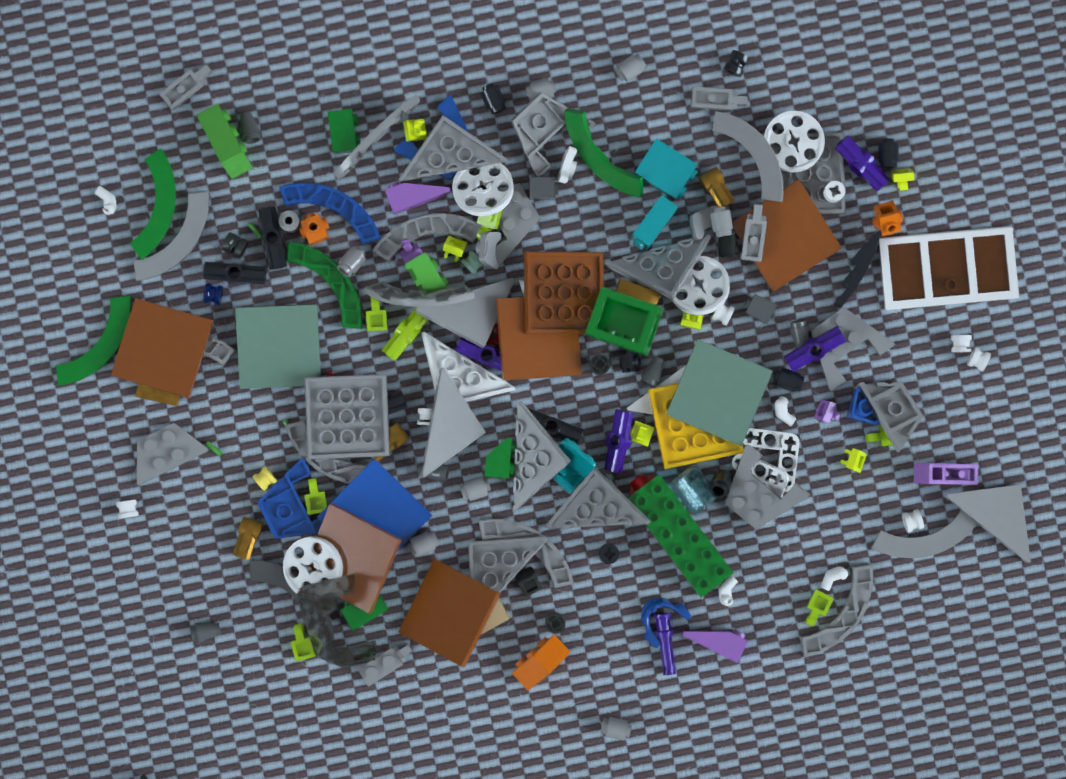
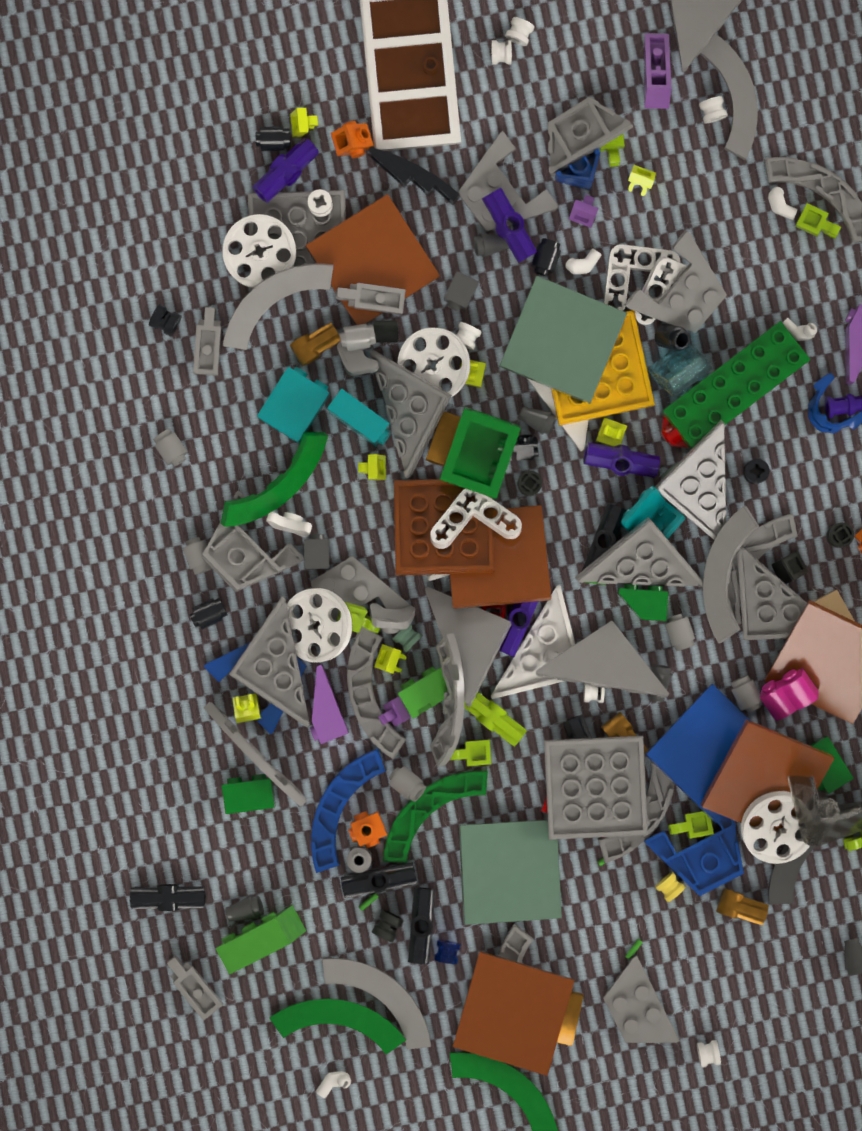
camera: 90 degrees left, 0 degrees up
(260, 65) = (167, 897): none -> black piece
(422, 578) = (788, 694): none -> dark pink brick
(523, 520) = (718, 572): none -> light grey tile
(577, 318) = (477, 510): none -> white beam
(613, 236) = (374, 467): none -> neon yellow tile

